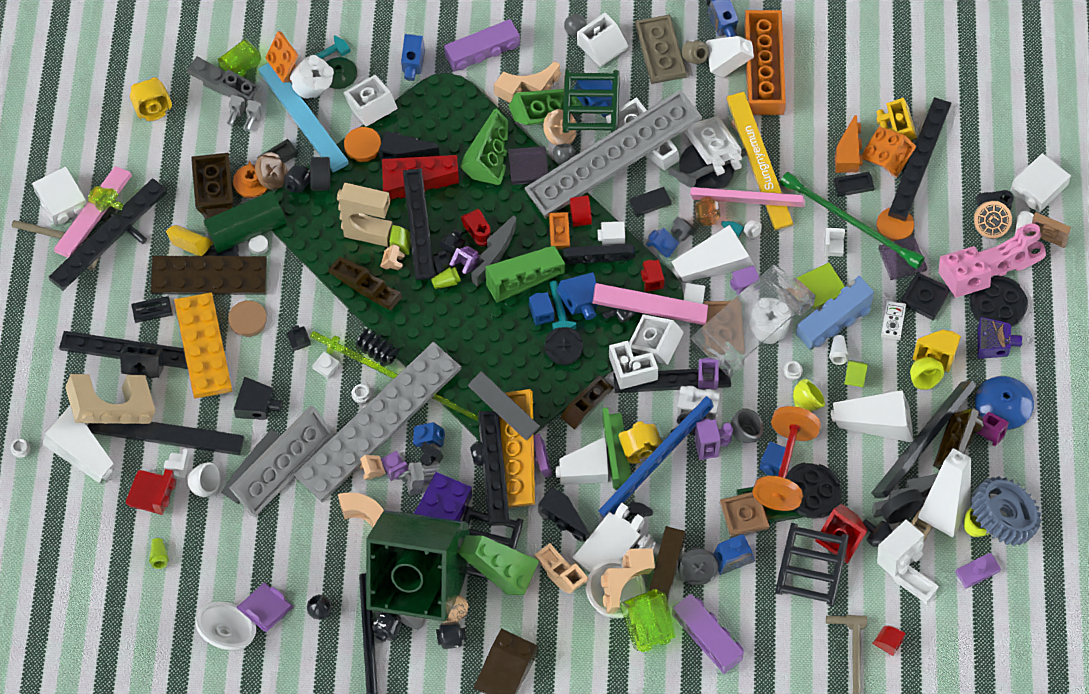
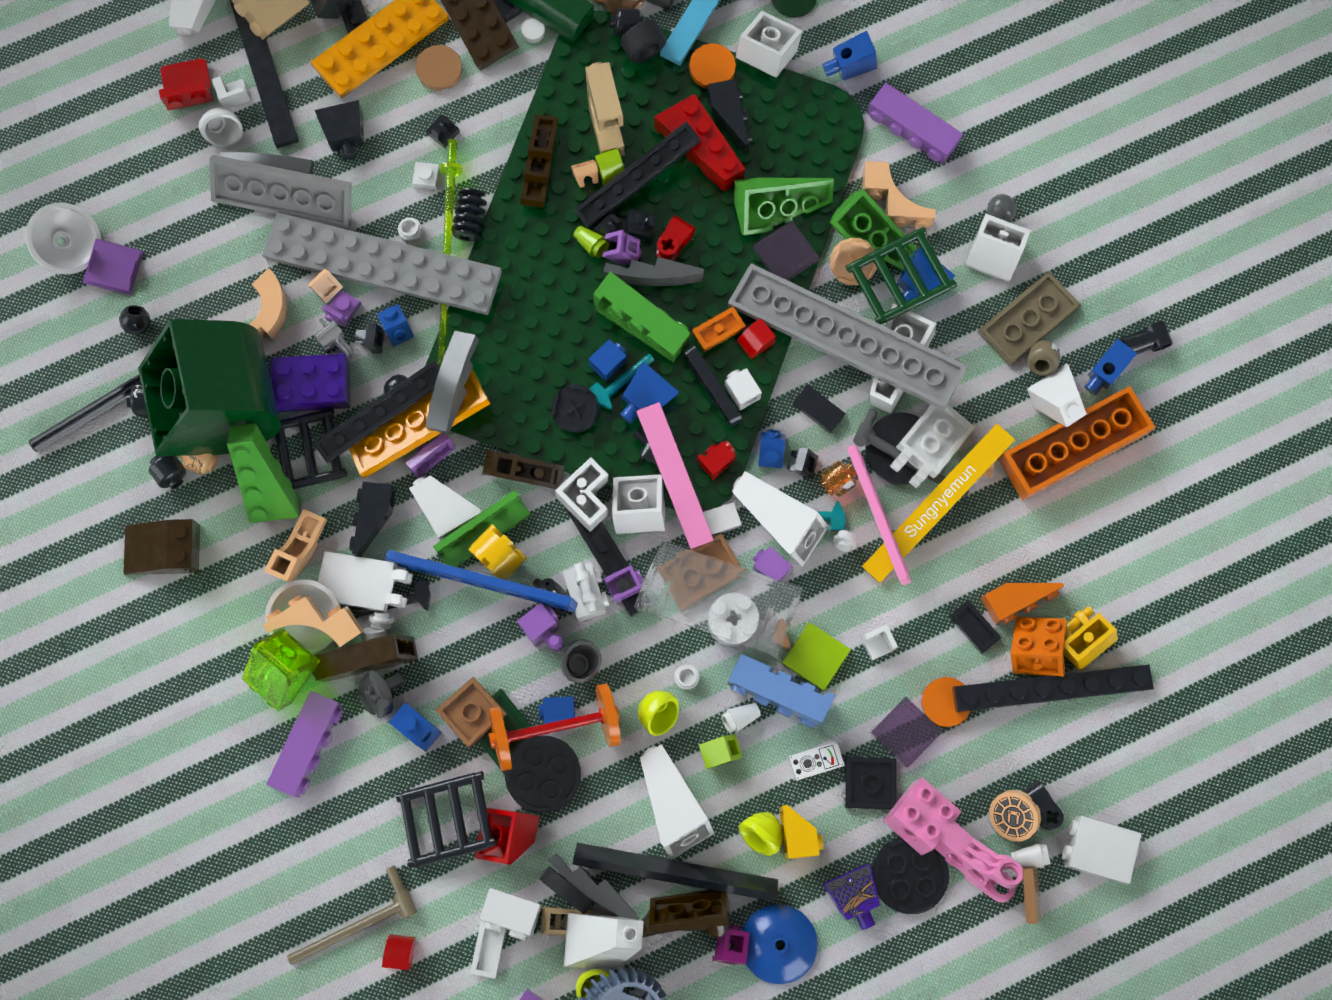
camera: 60 degrees right, 15 degrees up
(158, 555) = (119, 129): lime cone -> none
(563, 153) = (823, 283): dark grey piece -> none
(877, 533) = (525, 879): black piece -> none
(913, 258) = (907, 744): green hose -> none

